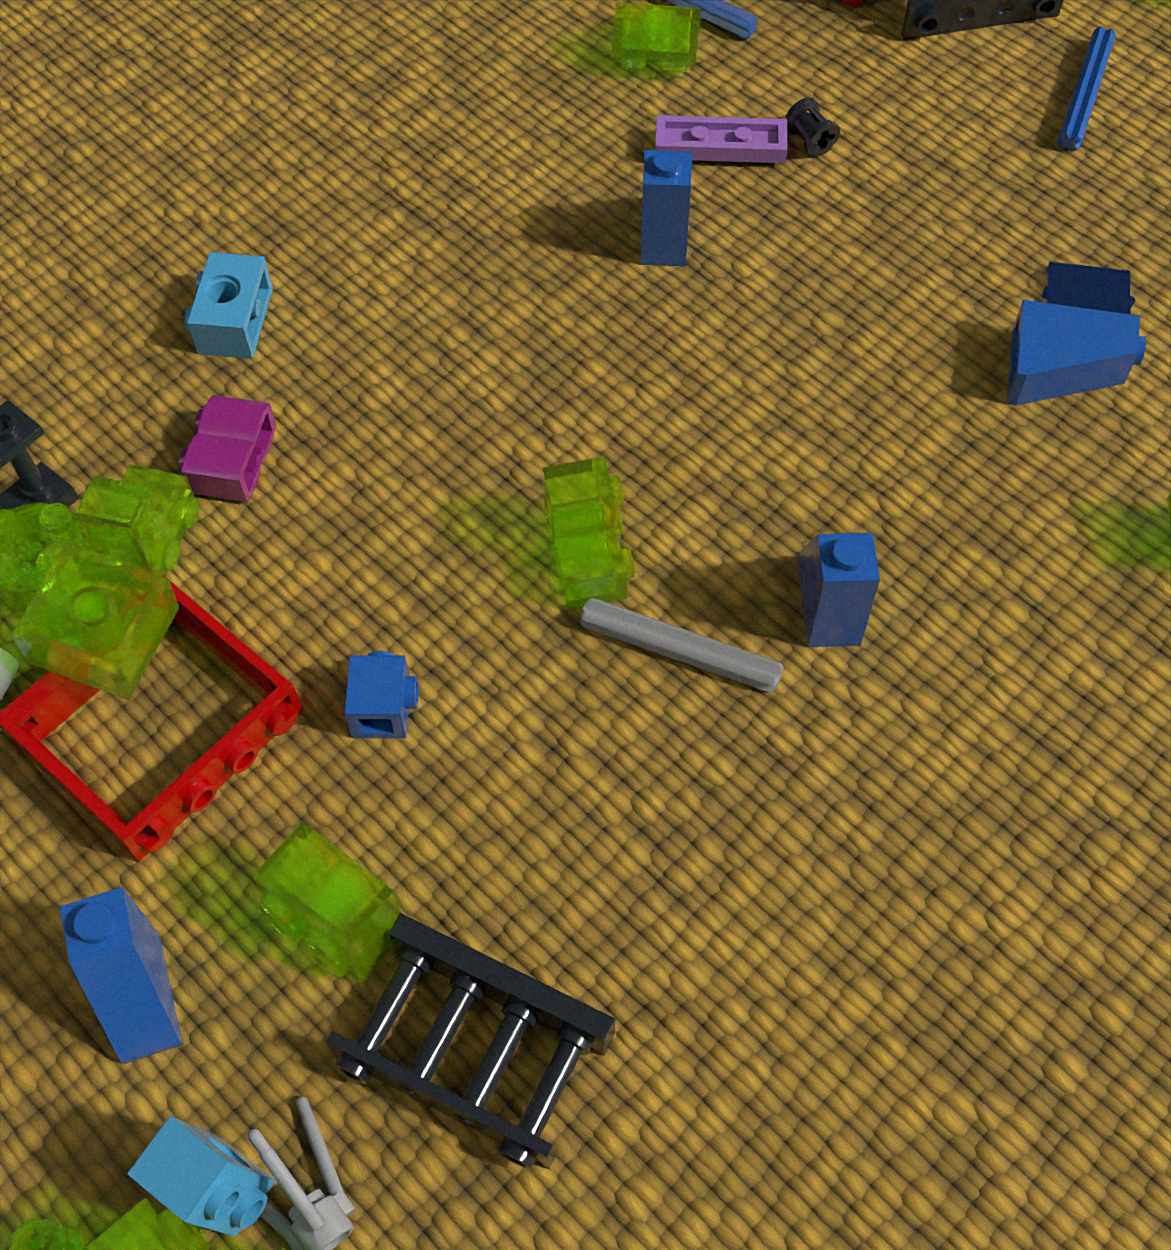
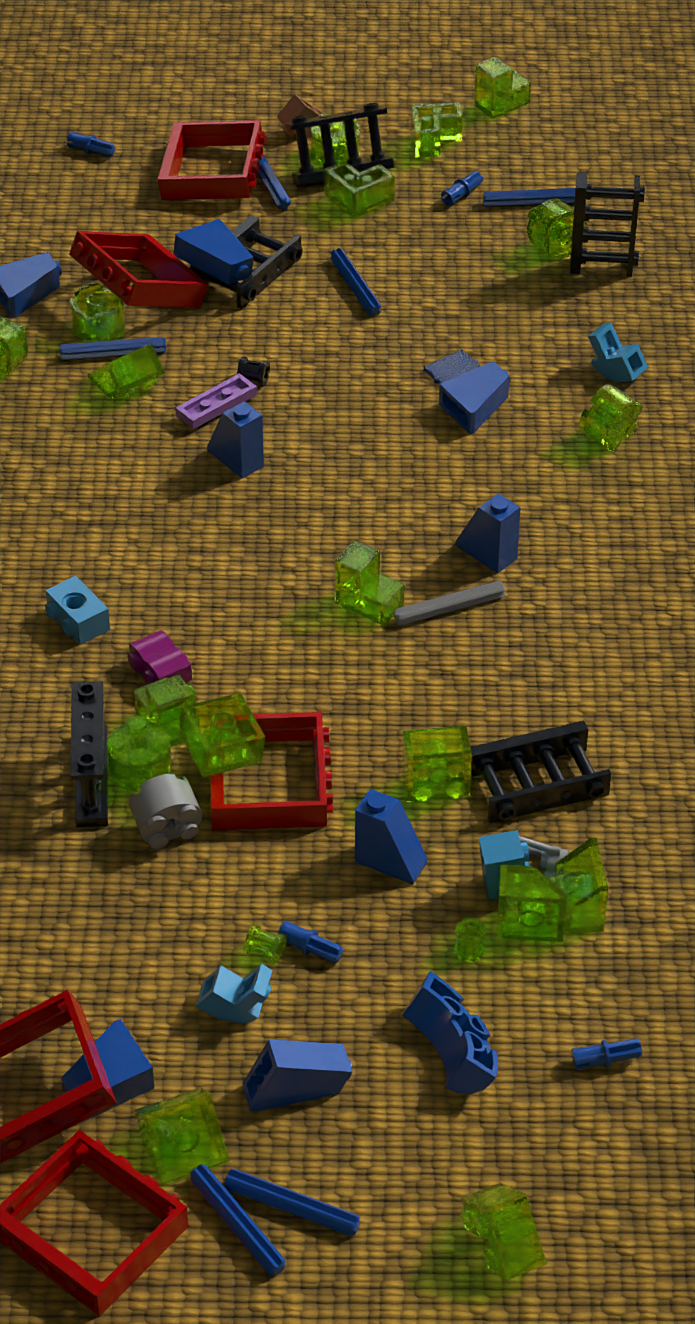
camera: 45 degrees left, 15 degrees down
(380, 695) = (355, 699): blue brick -> none

